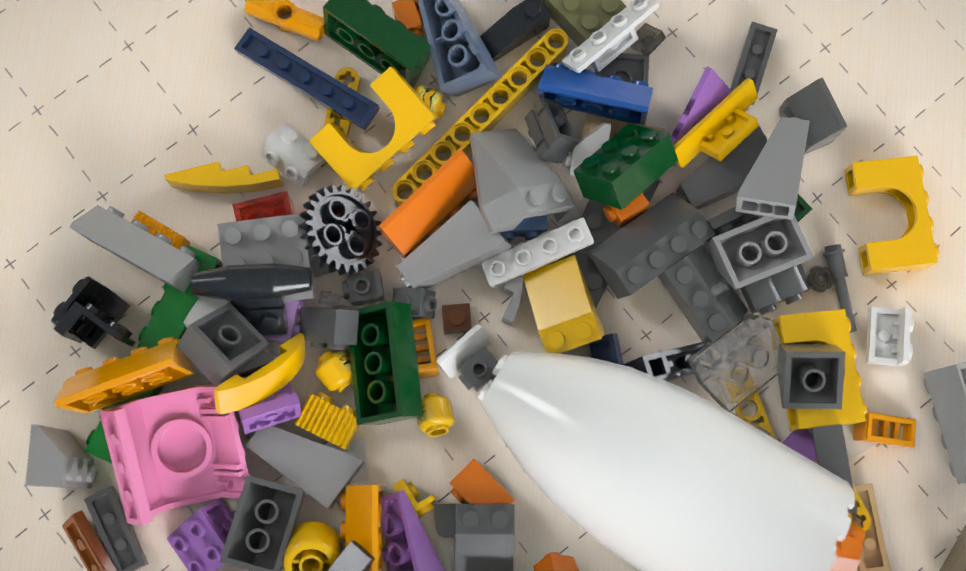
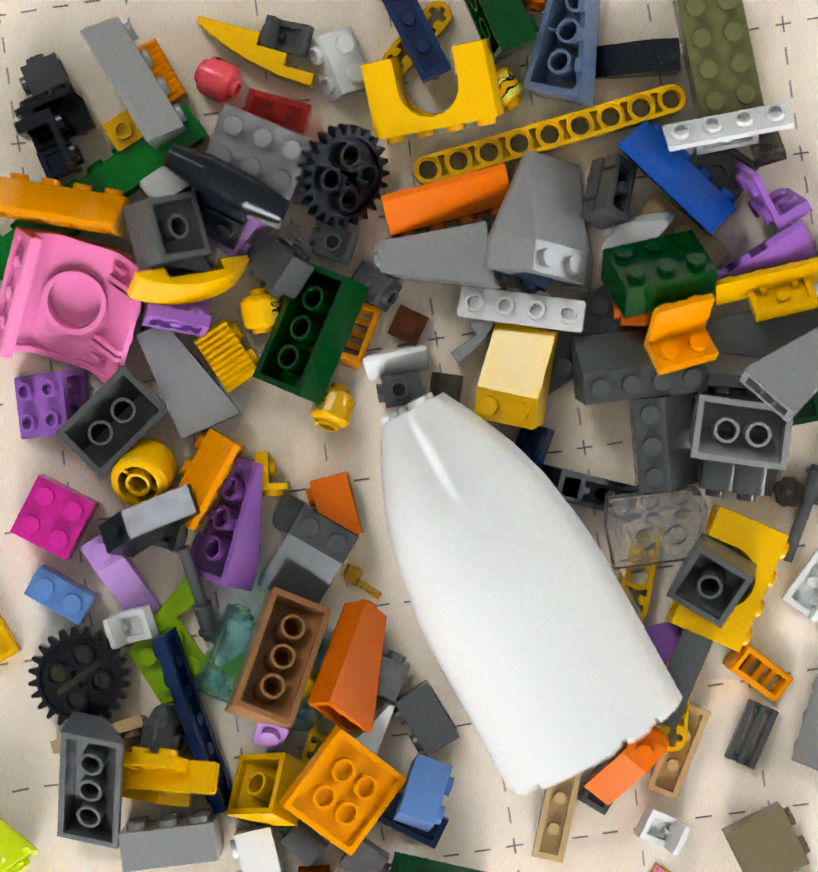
camera: 25 degrees right, 10 degrees up
(61, 284) = (43, 74): none -> dark grey brick
(111, 347) = (53, 163): none -> dark blue tile
(150, 292) = (122, 131): none -> yellow bracket
(205, 214) = (218, 79): none -> coral head
(244, 153) = (286, 36): none -> dark grey bracket
(513, 343) = (446, 383): none -> clear smoke slope
(526, 540) = (353, 576): none -> clear yellow hand
(666, 202) = (679, 335): none -> light orange bracket
(668, 73) = (778, 207): none -> medium lavender bracket
(922, 482) = (741, 758): none -> dark grey tile

